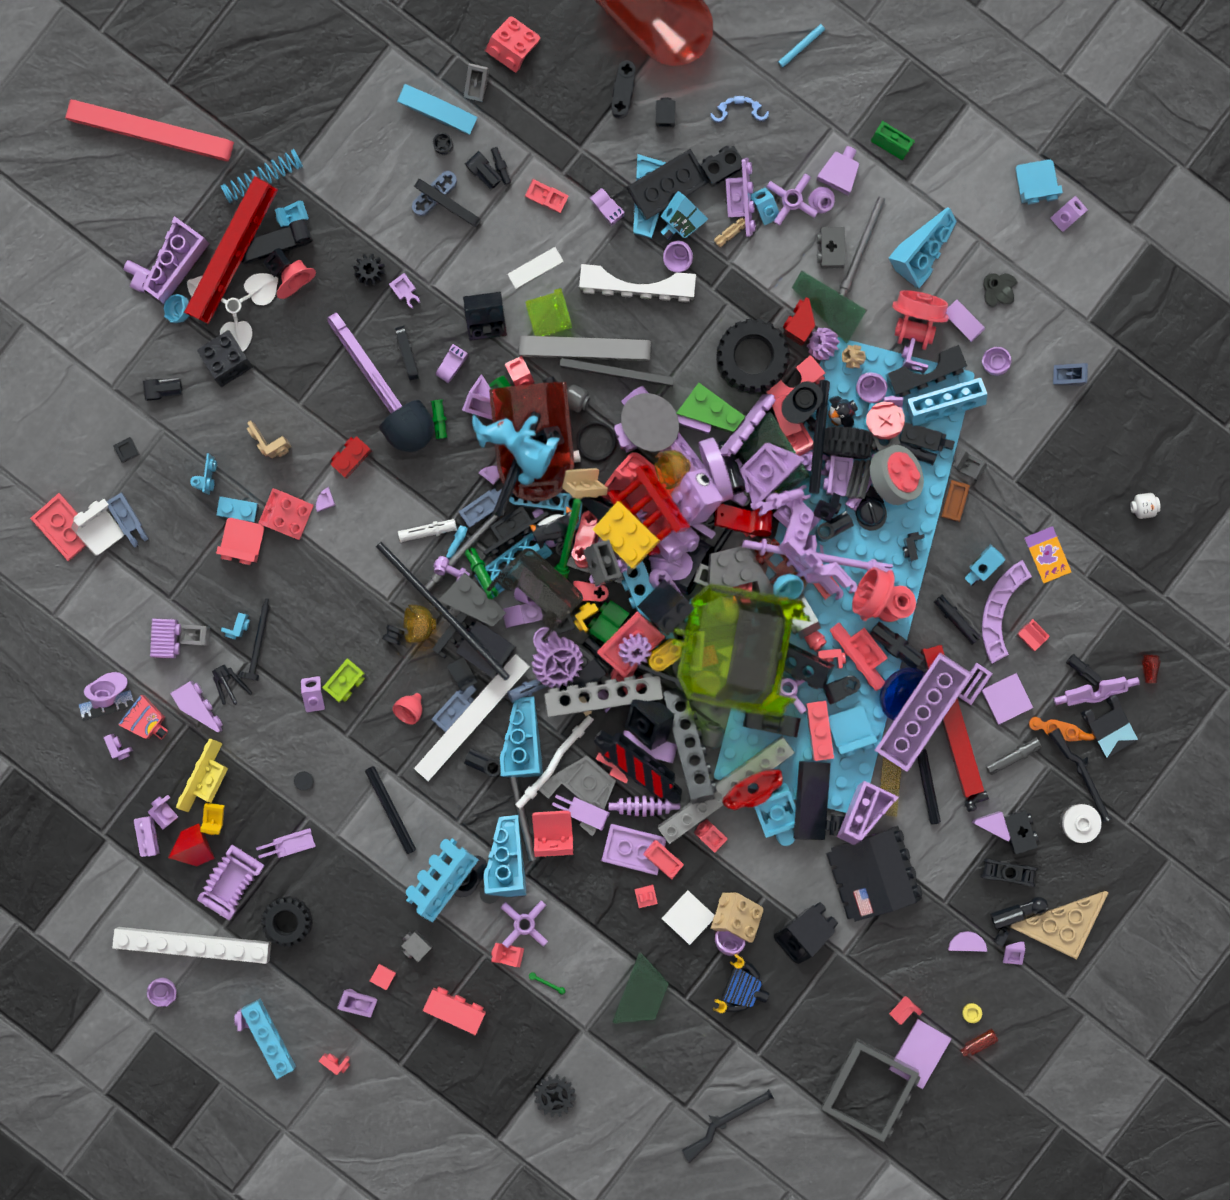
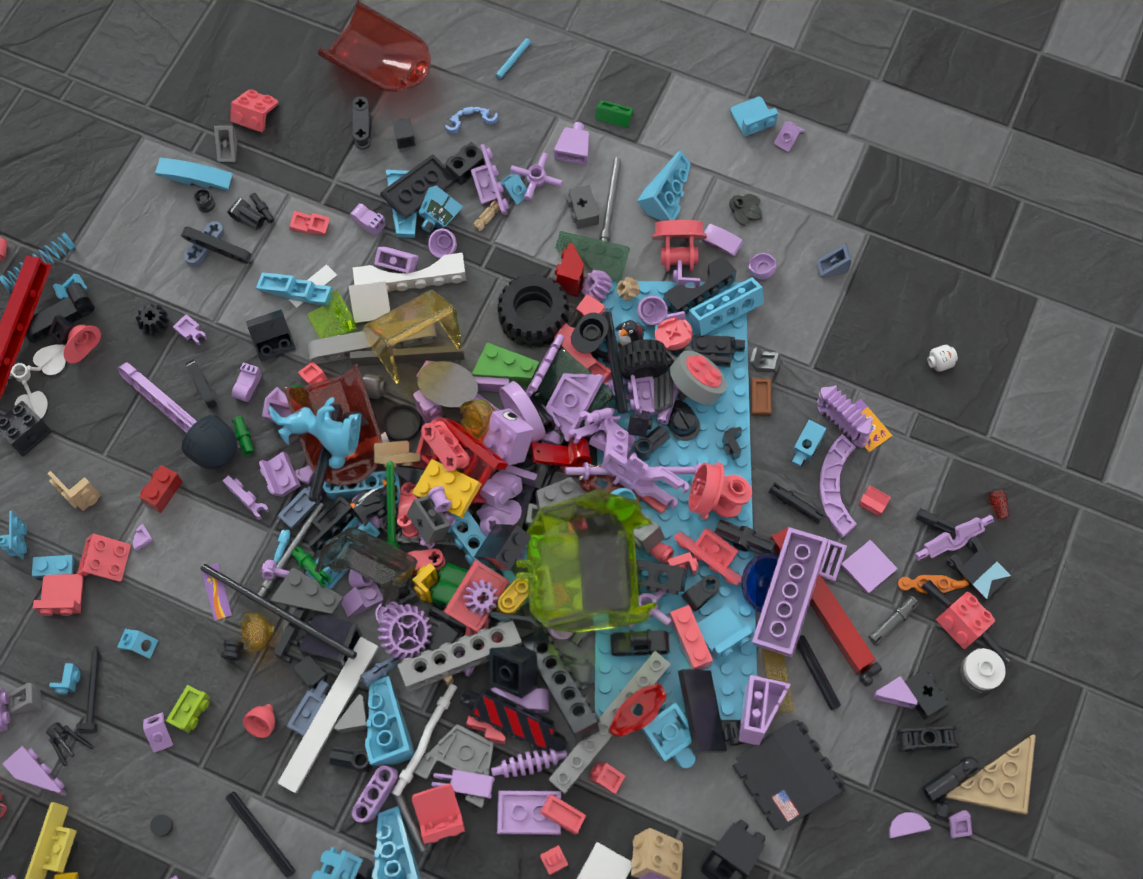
camera: 10 degrees left, 20 degrees down
(303, 603) = (132, 641): none -> medium azure bracket
(387, 575) = (217, 595): none -> medium lavender sticker
(427, 530) = (245, 543): white pin -> none
(432, 486) = (247, 499): none -> lavender plate
(467, 470) = (279, 475): none -> lavender bracket
(492, 806) = (366, 799): none -> lavender beam
(495, 726) = (354, 718): none -> light grey slope
(518, 270) = (291, 288): none -> medium azure slope
(591, 304) = (369, 300): none -> white tile
(617, 549) = (439, 499): none -> lavender bush
(625, 355) = (408, 320): none -> clear yellow windscreen
(627, 265) = (396, 260): none -> lavender brick
(634, 494) = (445, 445): none -> coral piece
(821, 199) = (563, 171): lavender piece -> none
(1030, 546) = (845, 414): none -> lavender piece
(1081, 772) = (966, 620): none -> coral bracket

